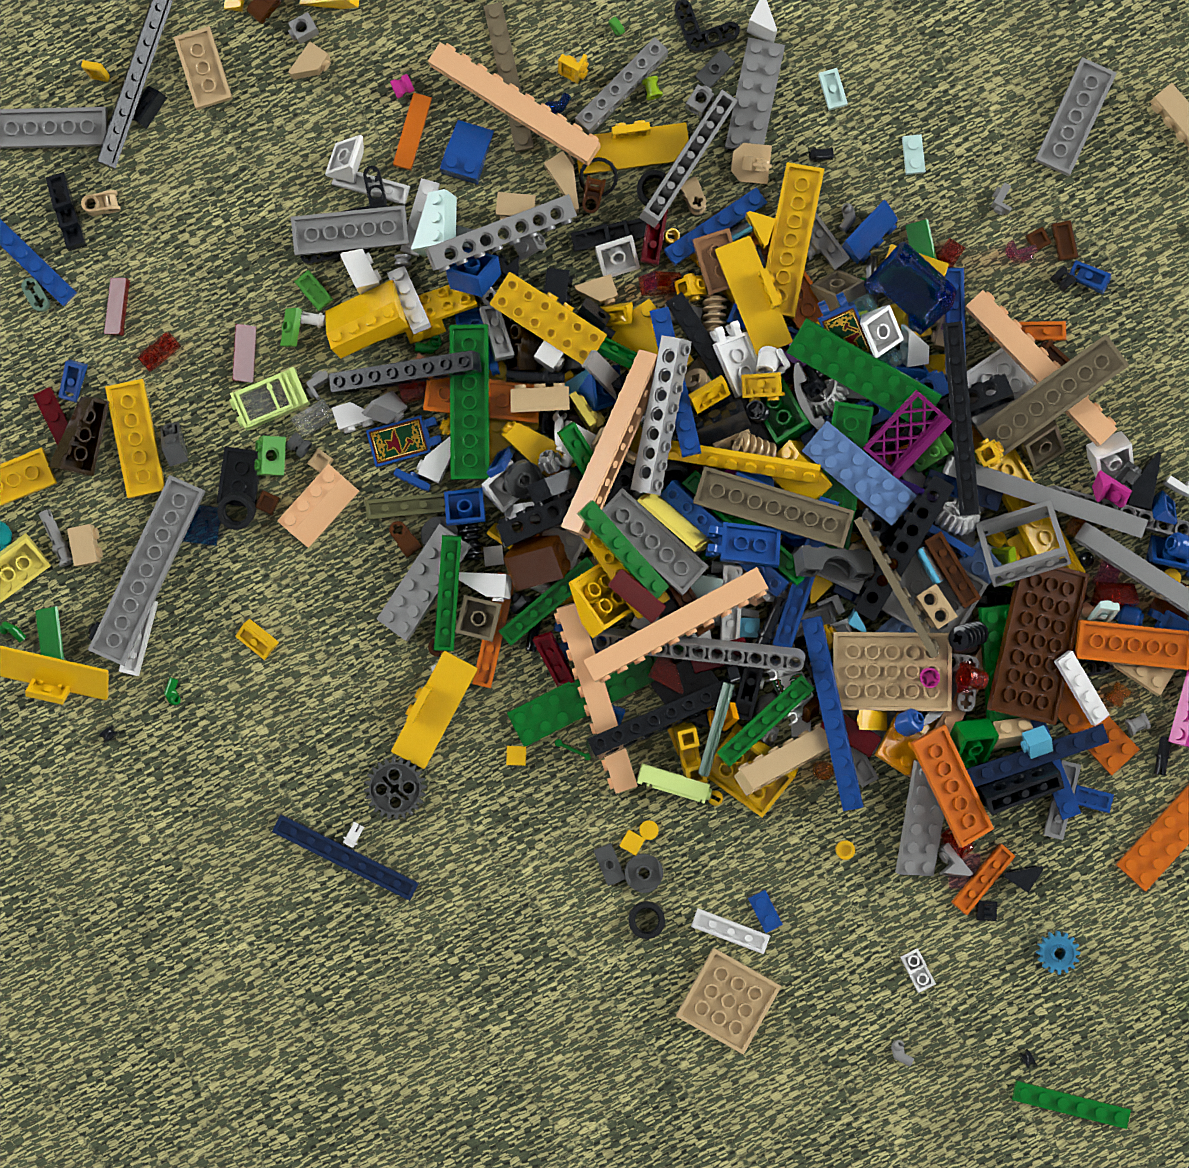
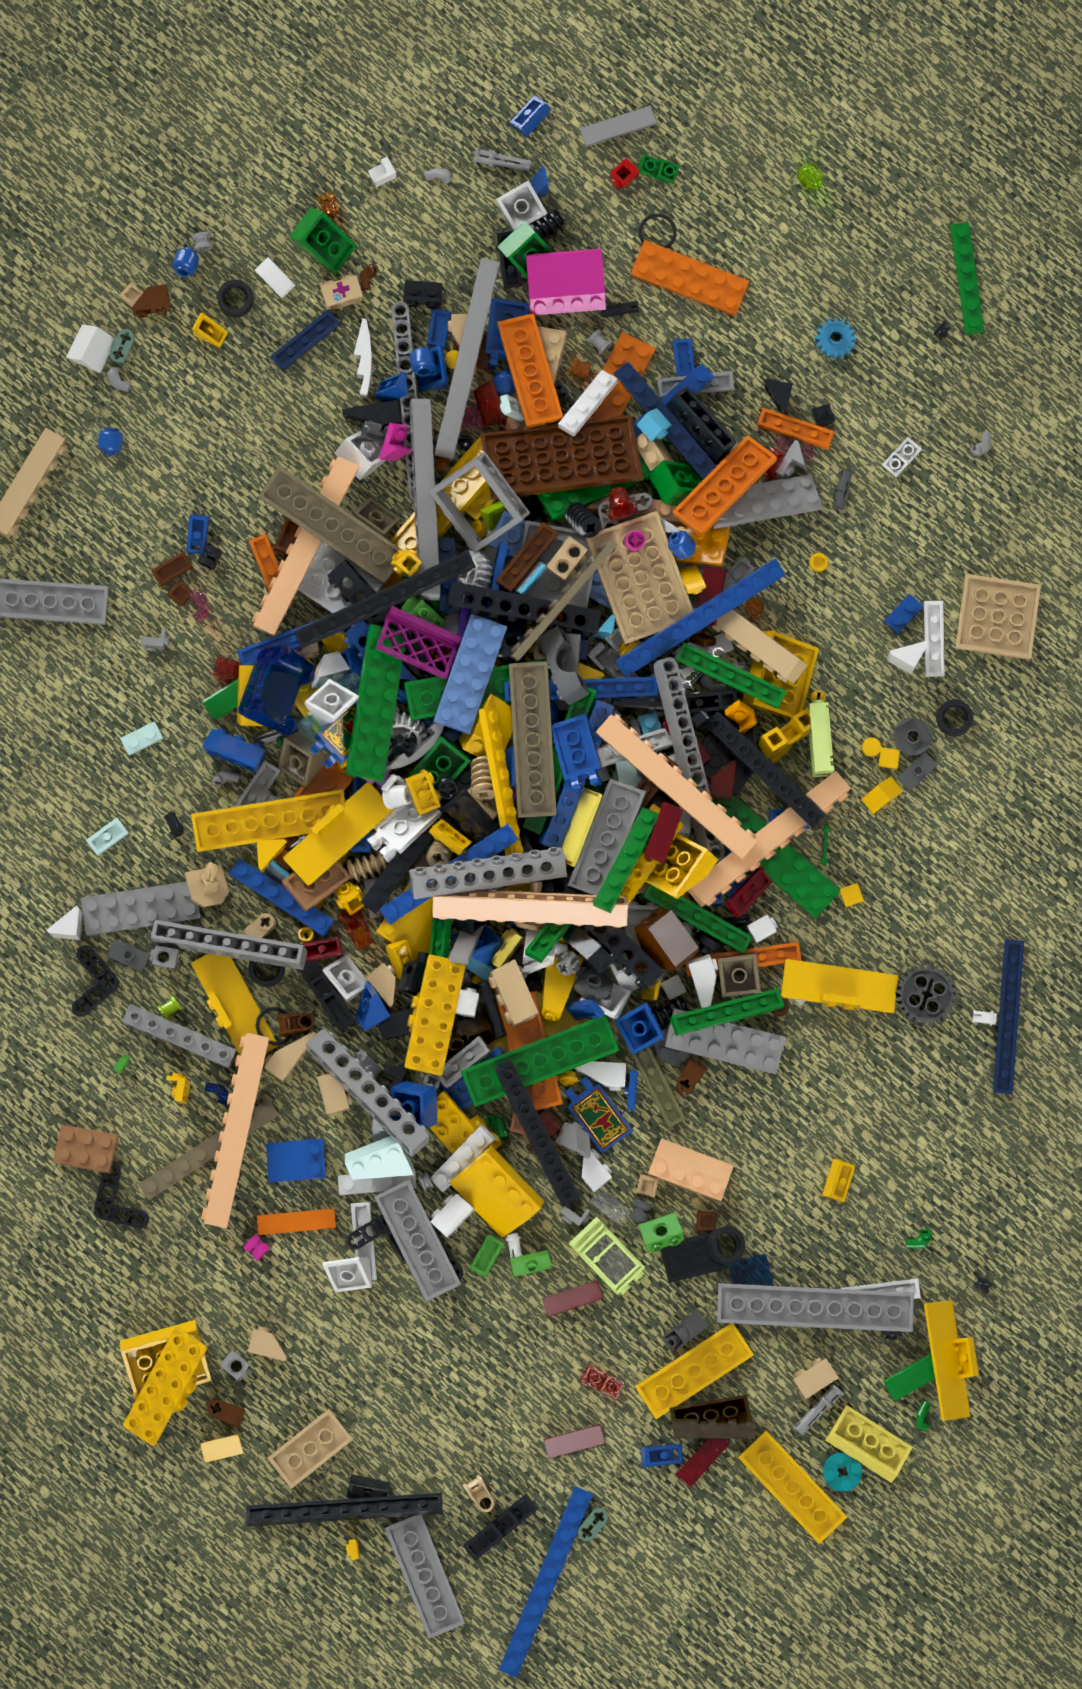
camera: 115 degrees left, 5 degrees down
(515, 659) = (762, 929): none -> white brick
(578, 268) = (370, 1009): none -> blue slope
(599, 822) = (881, 795): none -> yellow slope
(716, 729) = (756, 716): sand green axle -> none
(720, 898) = (908, 656): none -> white slope
(907, 900) = (842, 490): none -> dark grey pin

